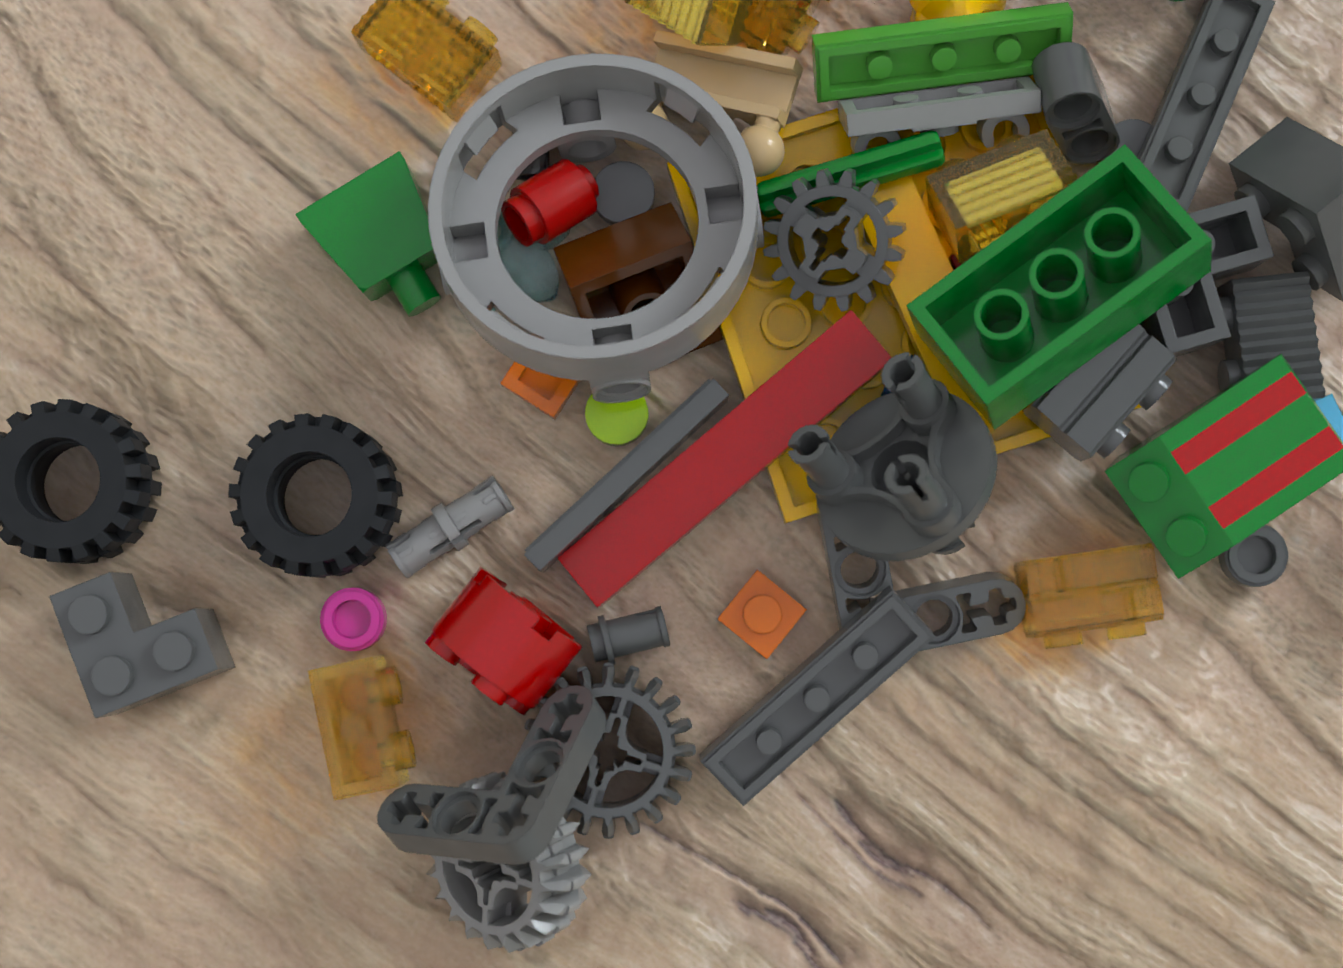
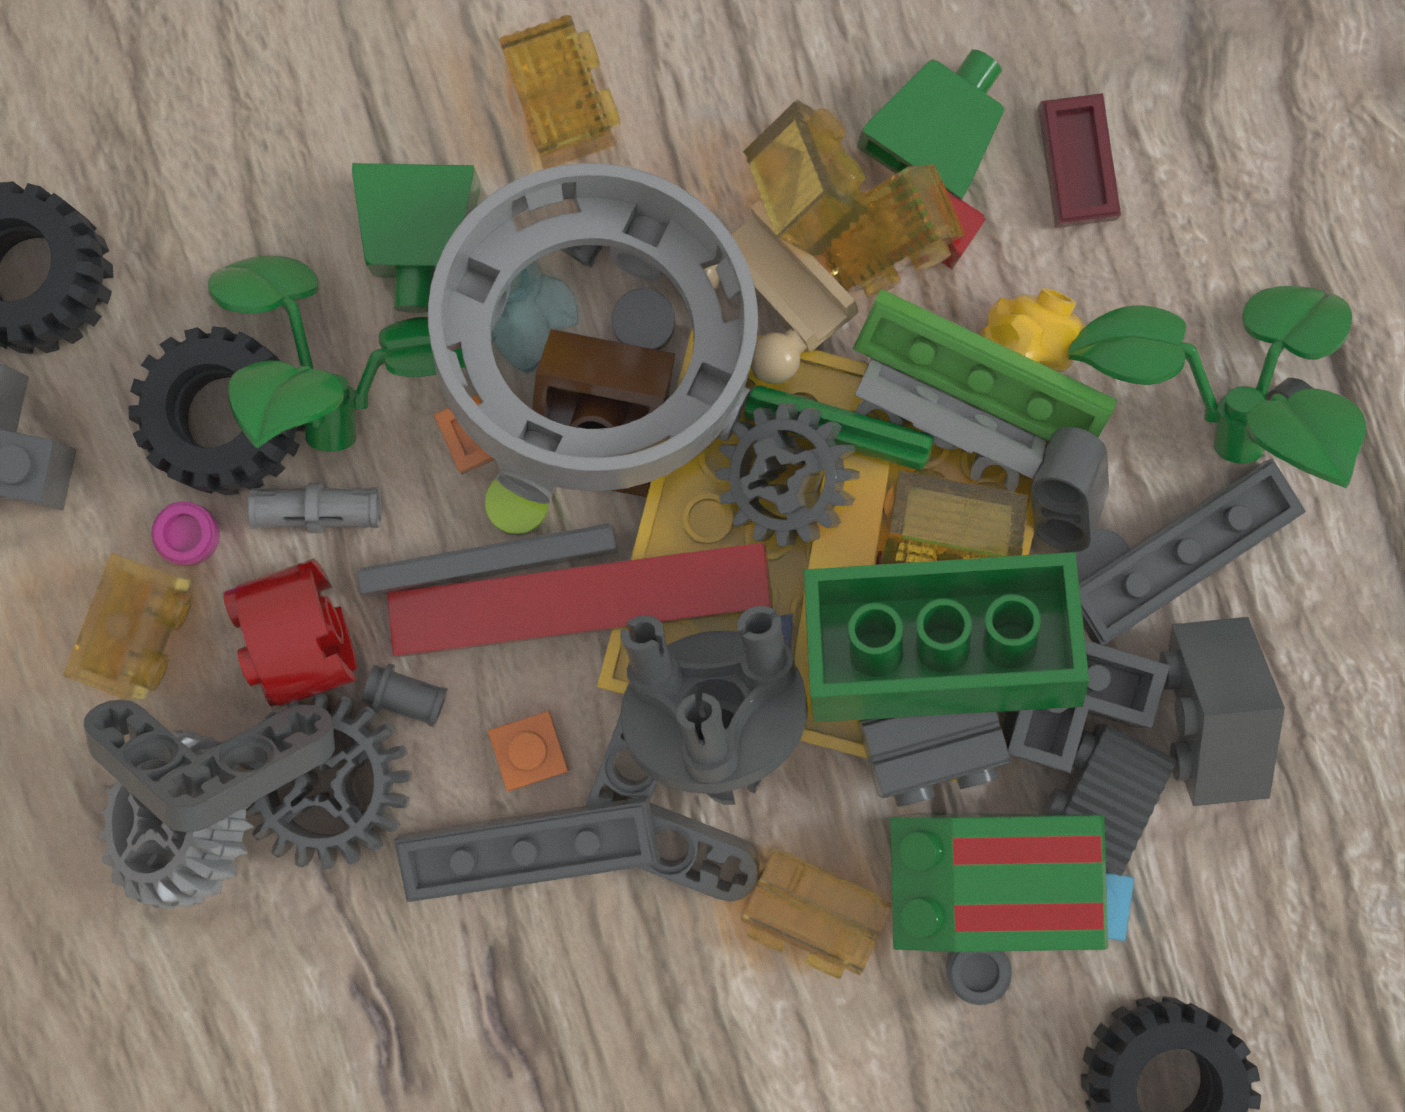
camera: 30 degrees right, 0 degrees up
(377, 438) = (276, 395): none -> green plant
(550, 203) = (573, 290): red brick -> none

